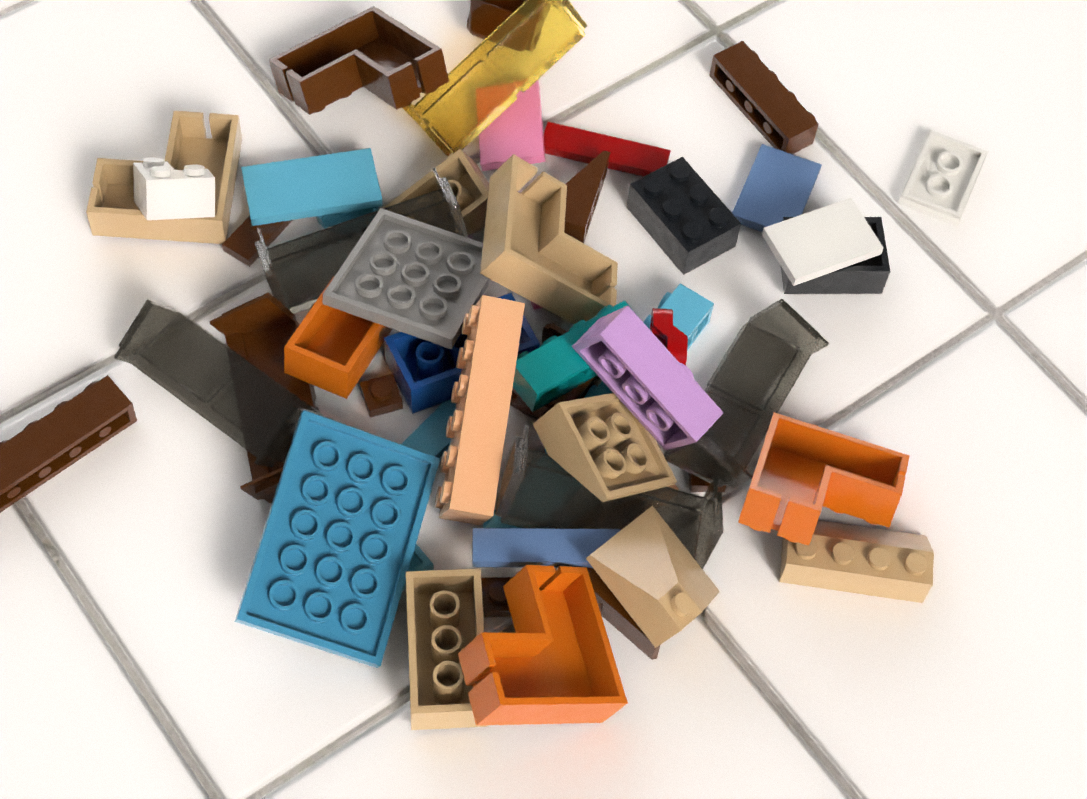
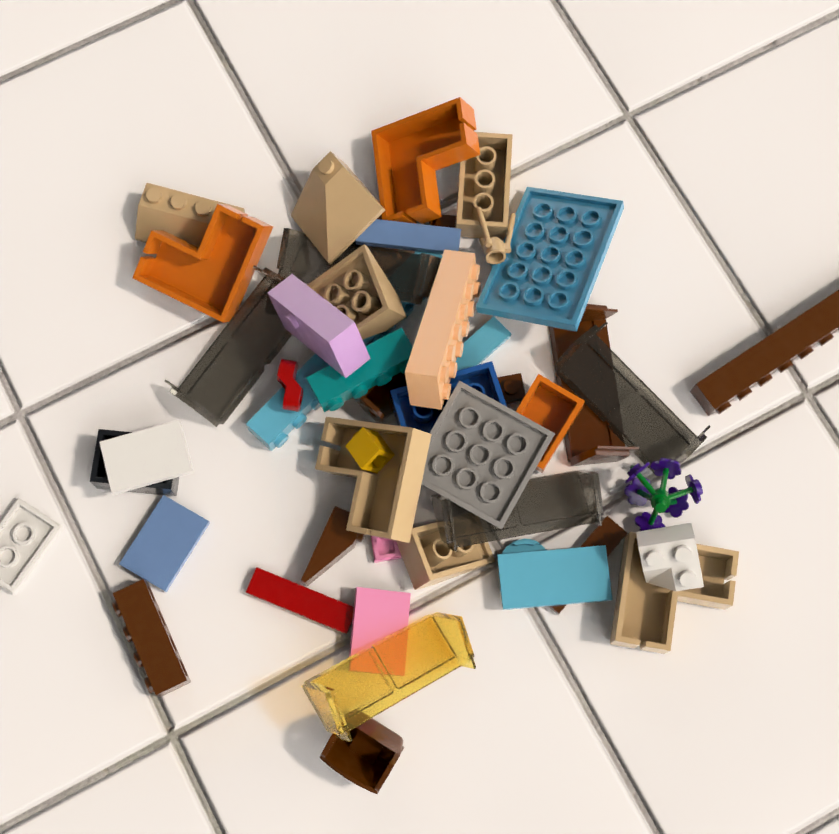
camera: 170 degrees left, 15 degrees up
(186, 256) = (662, 501): none -> dark purple plant
(359, 53) = (502, 707): reddish brown piece -> none
(422, 540) = (494, 247): none -> tan plant
(559, 260) = (369, 450): none -> yellow brick
(683, 215) = (250, 519): black brick -> none

